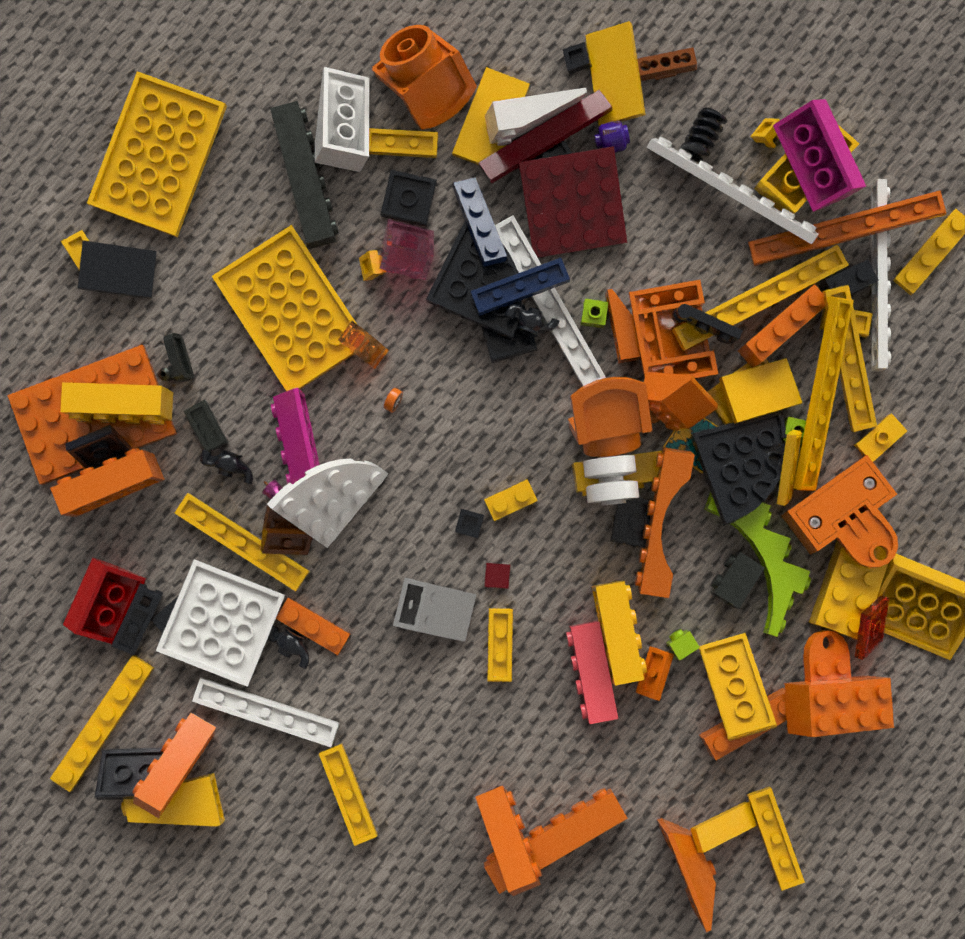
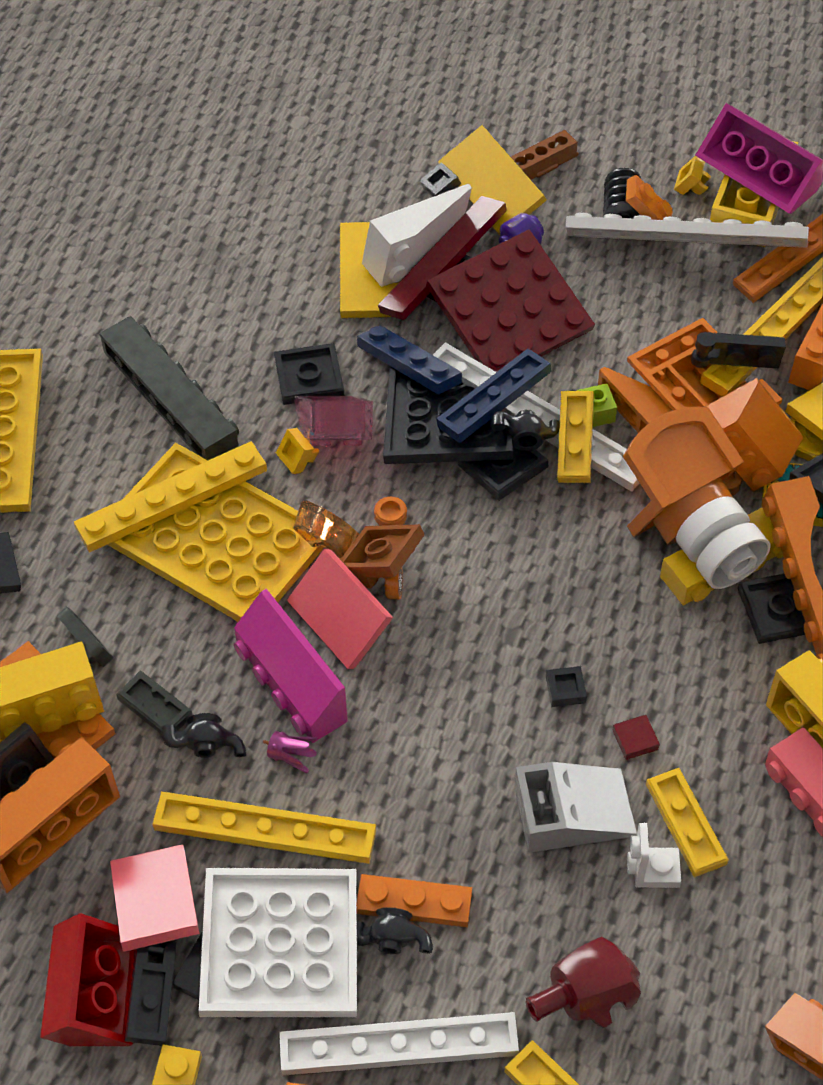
camera: 20 degrees left, 30 degrees down
(157, 563) = (153, 898): none -> tile
(271, 271) = (170, 496): none -> yellow plate
(282, 536) = (323, 778): reddish brown slope -> none
(328, 497) = (363, 710): white plate -> none
(343, 120) = (196, 322): white slope -> none
(347, 408) = (339, 609): none -> coral tile
(388, 380) = (381, 551): none -> dark orange plate
(389, 727) = (589, 984): none -> dark red piece
(403, 143) = (275, 322): yellow plate -> none
(416, 340) = (390, 511): none -> orange tile
(425, 75) = (281, 238): orange piece -> none
(465, 666) = (652, 865): none -> white bracket
(510, 500) = (604, 642): yellow plate -> none
(564, 338) = (575, 437): none -> yellow tile
(719, 150) = (645, 200): none -> orange plate

